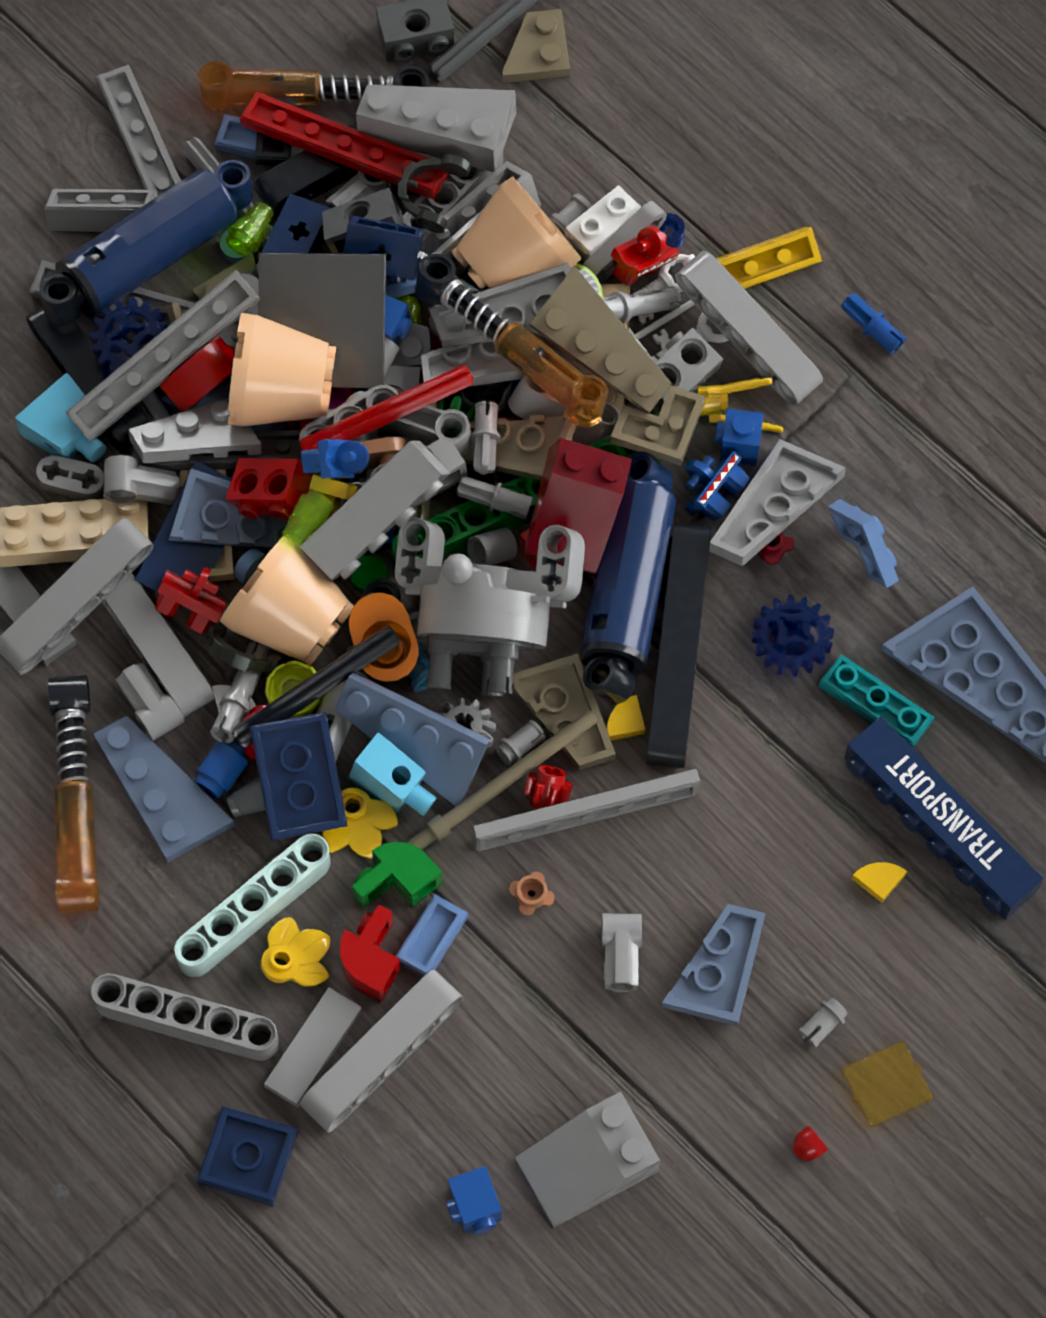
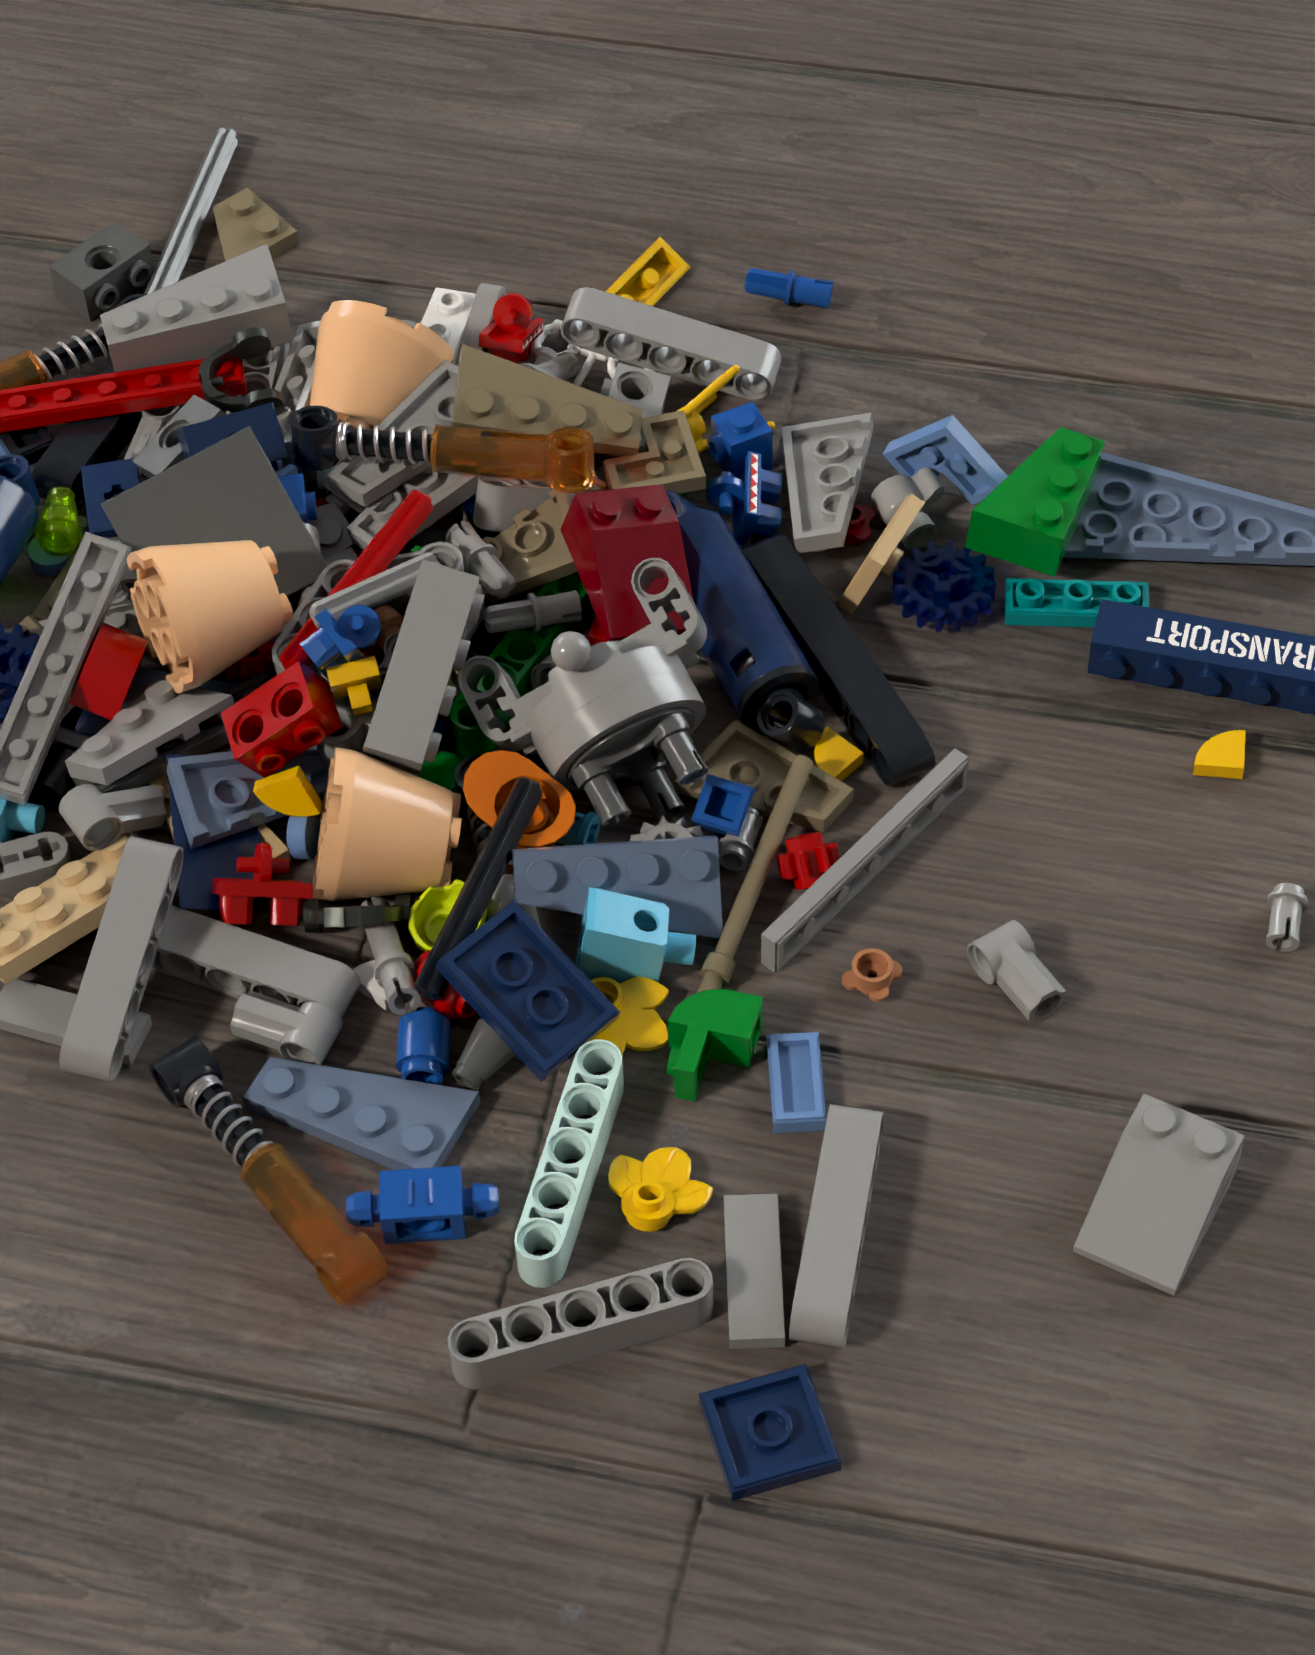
camera: 30 degrees left, 15 degrees down
(146, 877) = (422, 1205): none -> blue piece
(250, 538) = (289, 793): none -> yellow tile
(307, 517) = (352, 709): clear neon green cone -> none
(363, 962) = (745, 1146): red brick -> none
(388, 430) = (373, 590): none -> light grey axle
(474, 1201) = (1070, 1313): blue brick -> none
(518, 716) = (722, 806): none -> blue slope
(720, 971) = (1136, 929): sand blue wing -> none
(762, 590) = (883, 554): none -> tan plate
(815, 551) = (892, 492): none -> light grey piece
(895, 617) = (1038, 504): none -> green wedge

